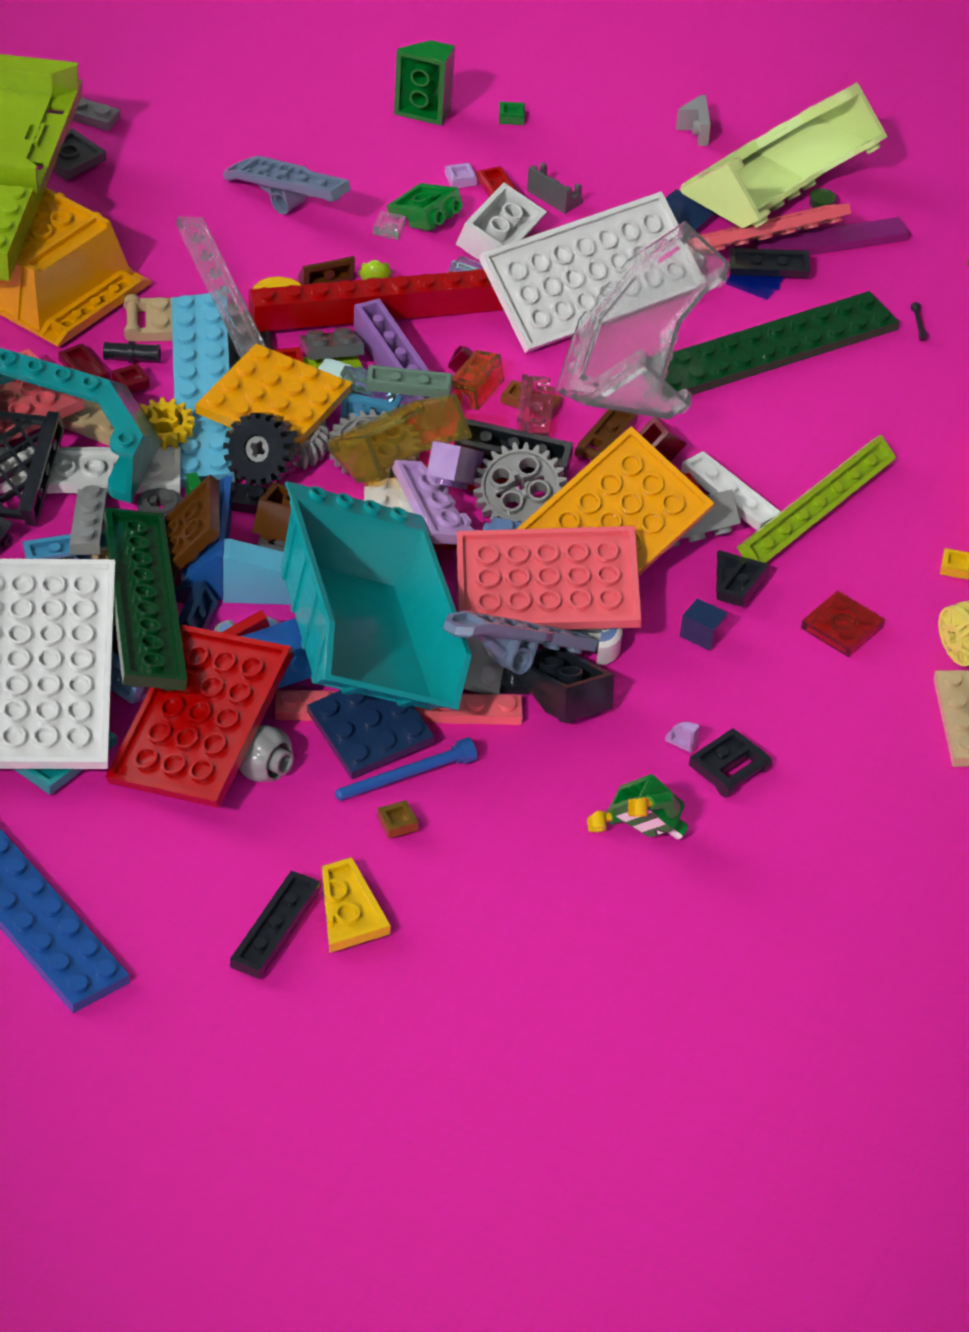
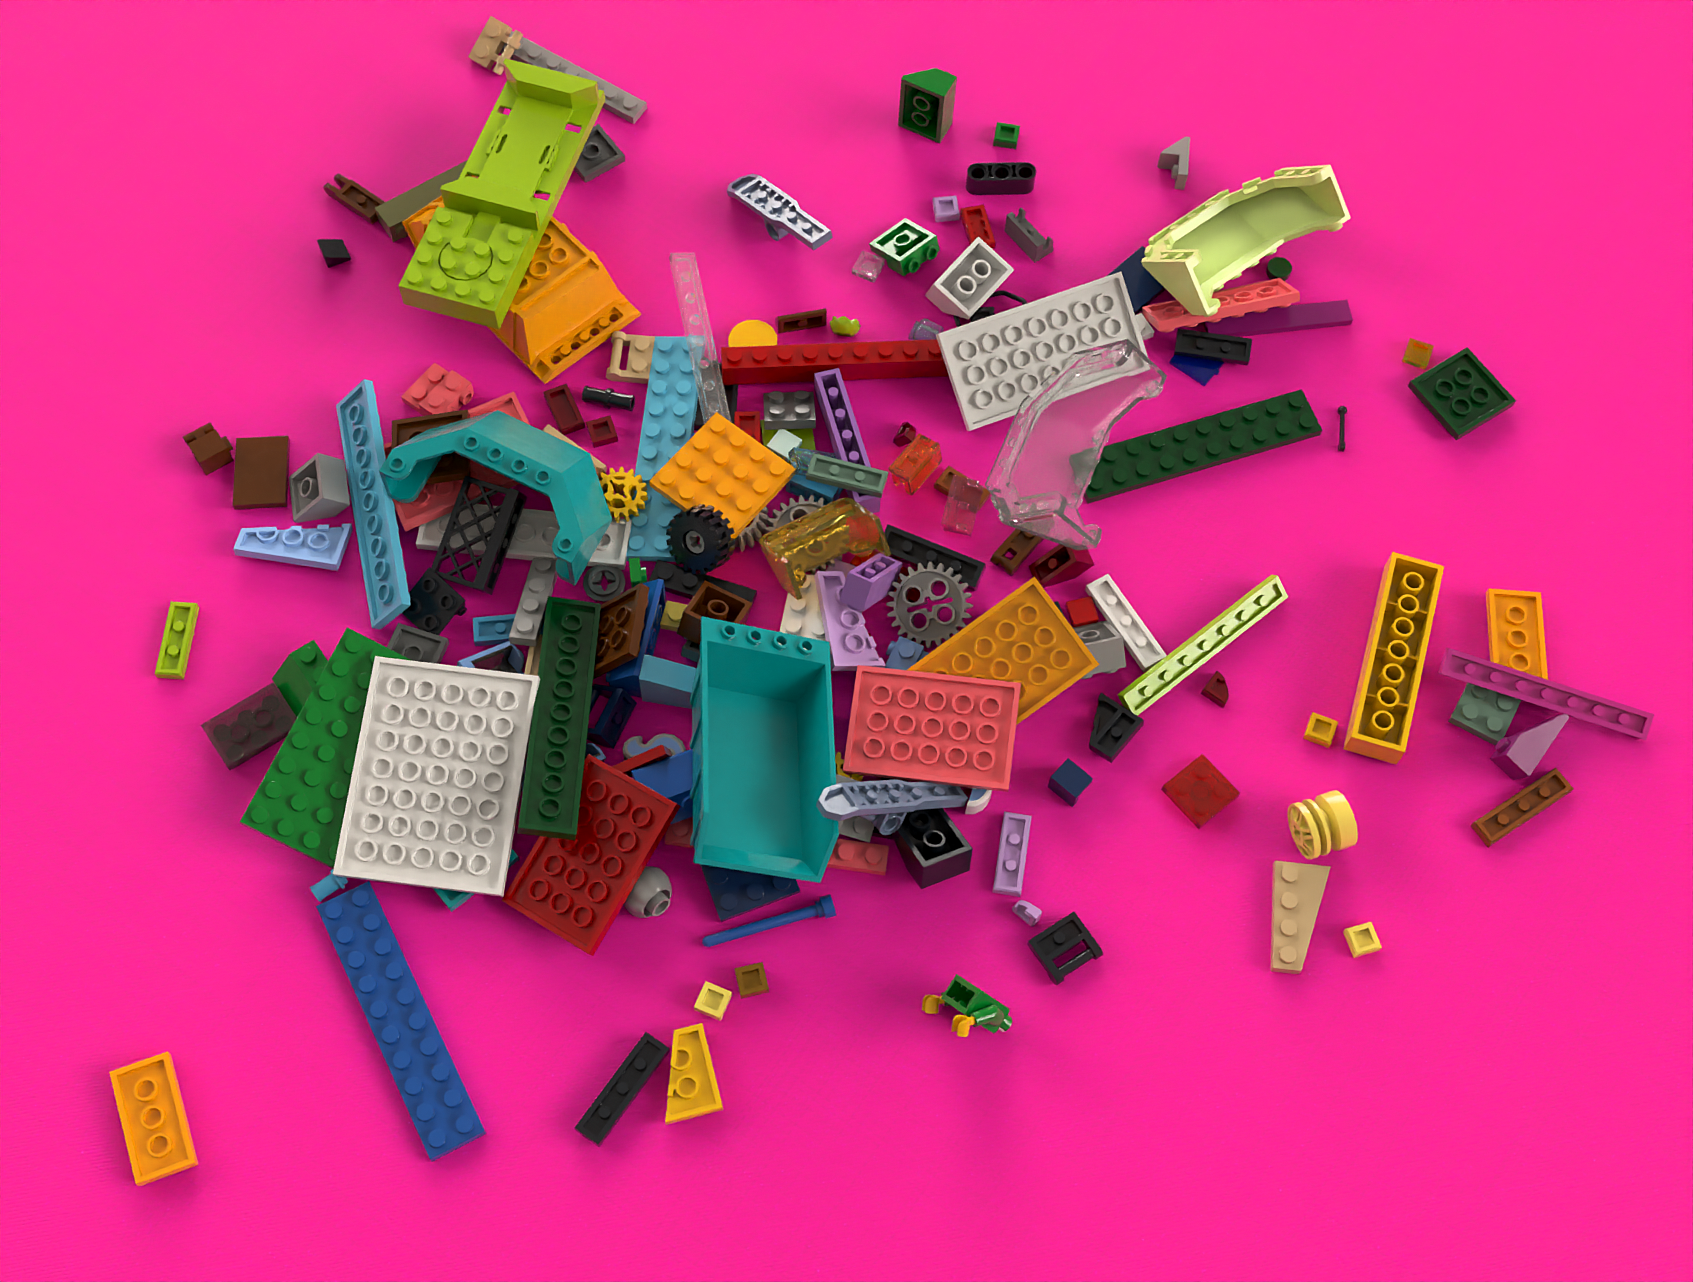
camera: 10 degrees right, 20 degrees up
(242, 528) = (672, 615): none -> light yellow plate
(358, 840) = (713, 1000): none -> light yellow plate
(514, 145) = (1000, 178): none -> beam
(654, 692) = (1012, 854): none -> lavender tile
(839, 540) = (1216, 690): none -> dark red tile

